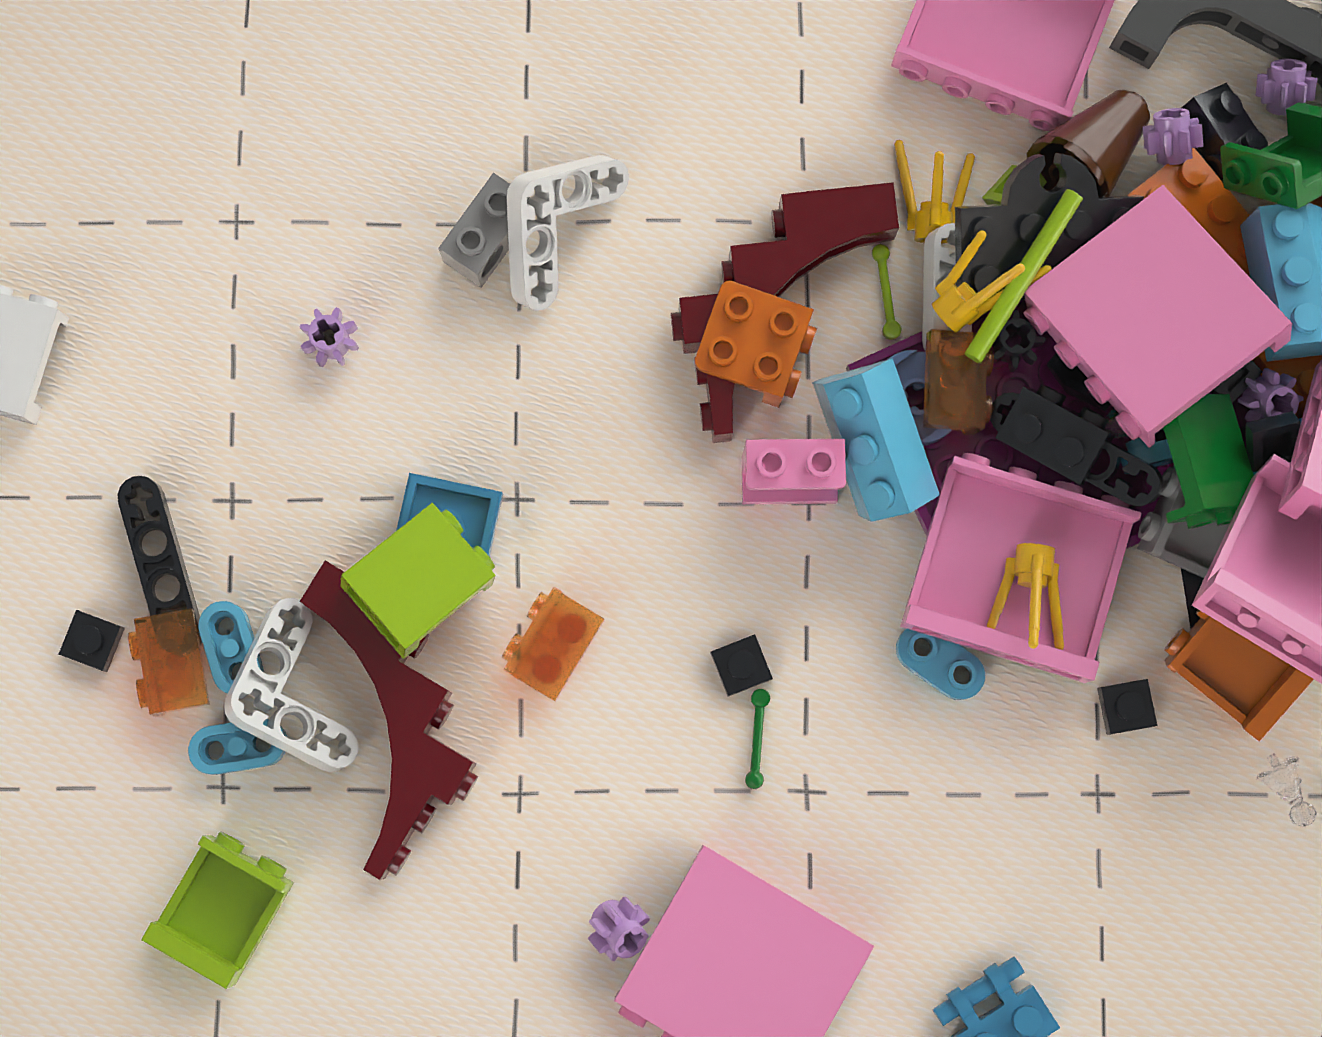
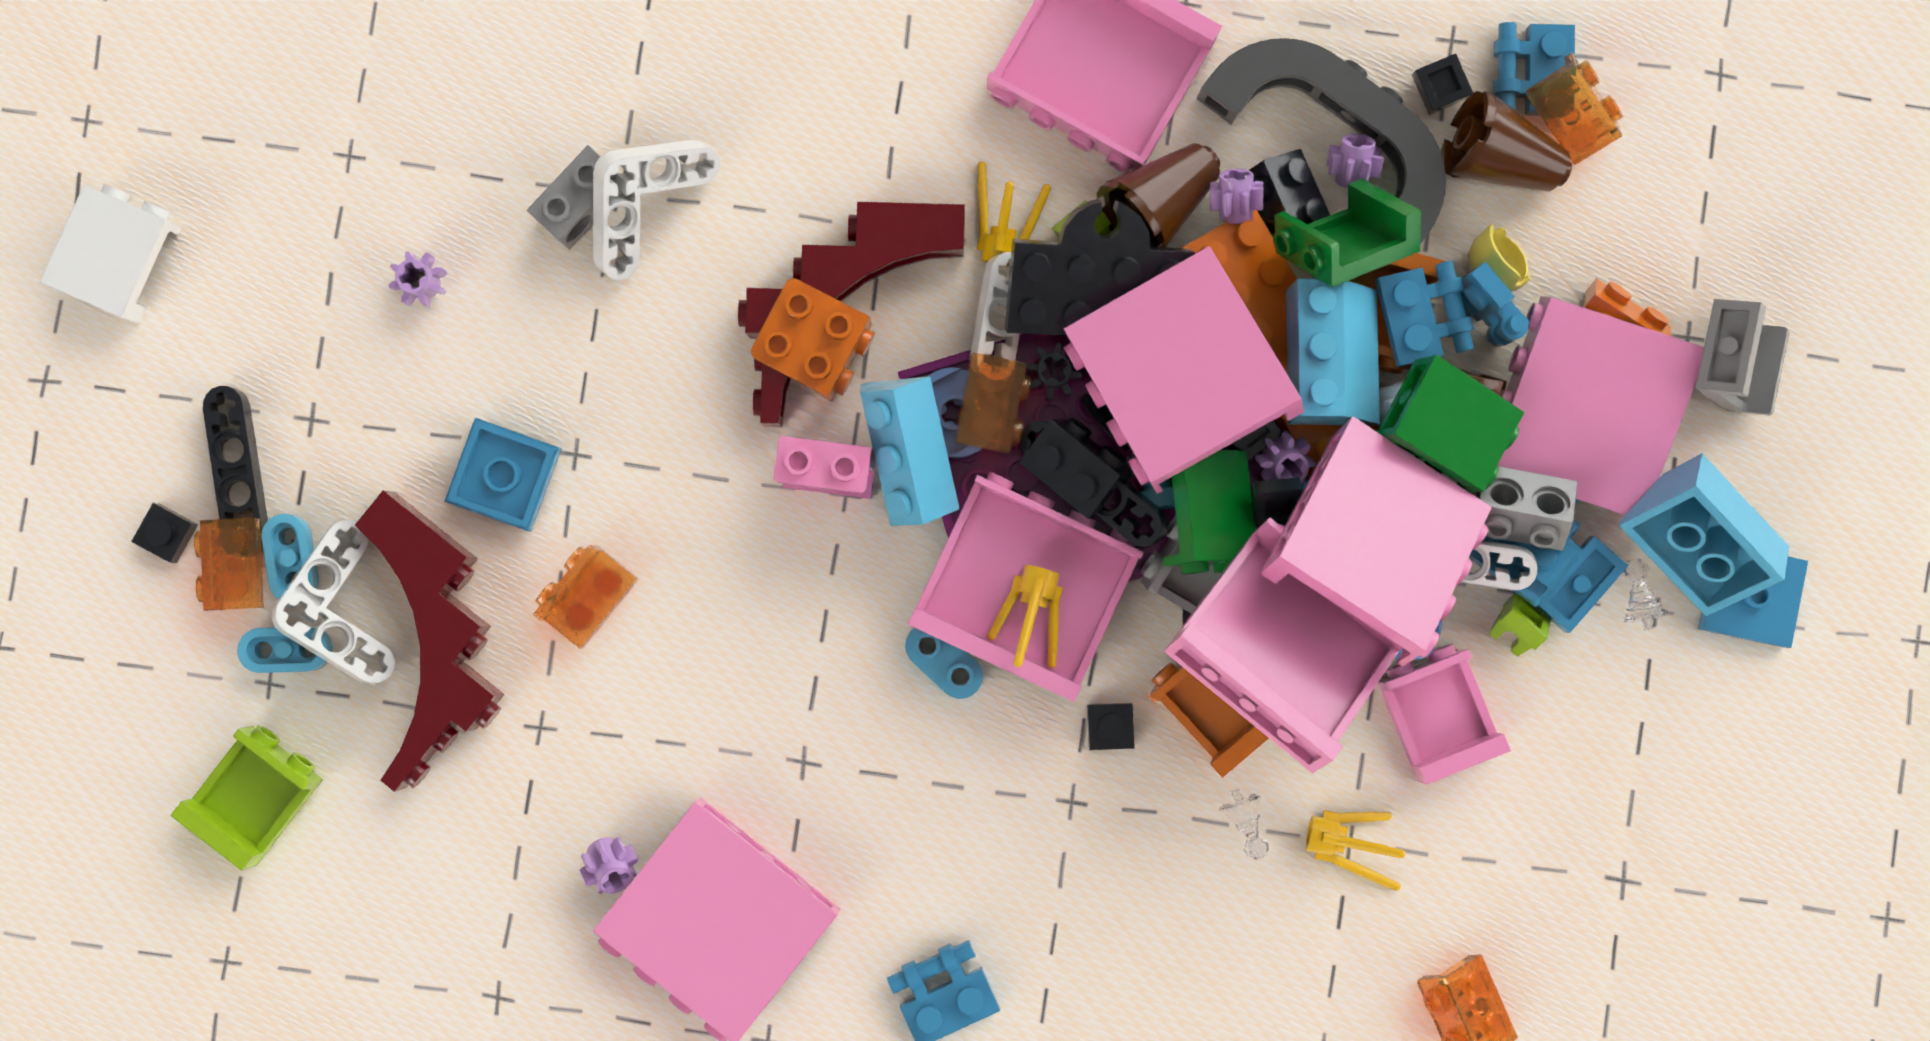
camera: 15 degrees right, 5 degrees up
(418, 578) = (464, 519): lime panel -> none
(741, 665) = (759, 638): black plate -> none
(760, 699) = (772, 672): green hinge -> none
(892, 328) = (947, 341): lime hinge -> none
(962, 304) = (1005, 332): yellow plant -> none
(1015, 290) = (1065, 314): lime bar -> none

